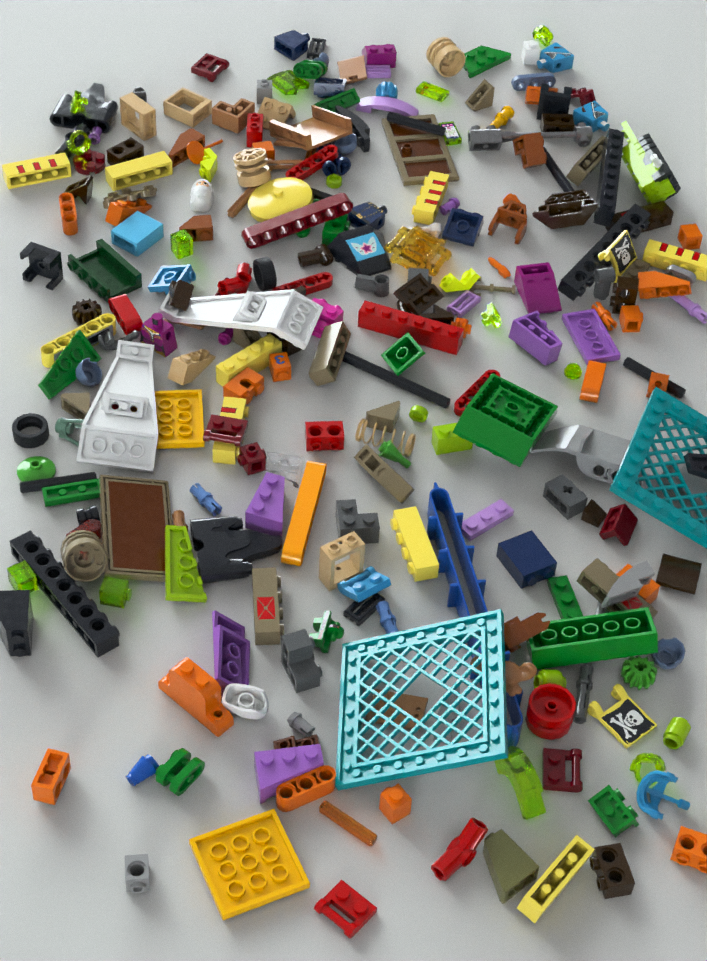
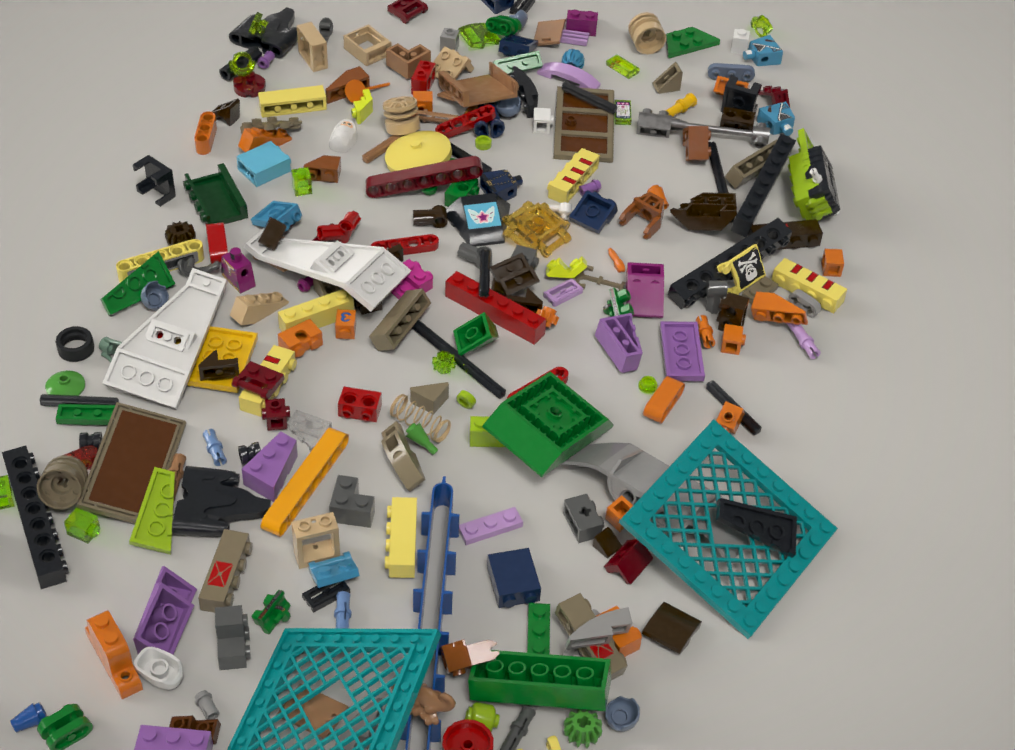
camera: 15 degrees right, 0 degrees up
(36, 170) = (194, 85): light yellow brick -> none
(76, 404) = (128, 323): dark tan slope -> none
(125, 151) = (286, 79): dark brown brick -> none
(183, 427) = (213, 369): none -> dark brown slope
(241, 498) = (247, 453): none -> black wheel
(264, 273) = (368, 225): black tyre -> none
(381, 152) = (542, 120): none -> white brick
(384, 384) = (443, 362): none -> clear neon green gear
(393, 297) = (484, 282): none -> black axle
(491, 316) = (585, 310): clear neon green tile -> none
(519, 298) = (616, 304): none -> green hips
(598, 485) = (617, 511): none -> orange brick

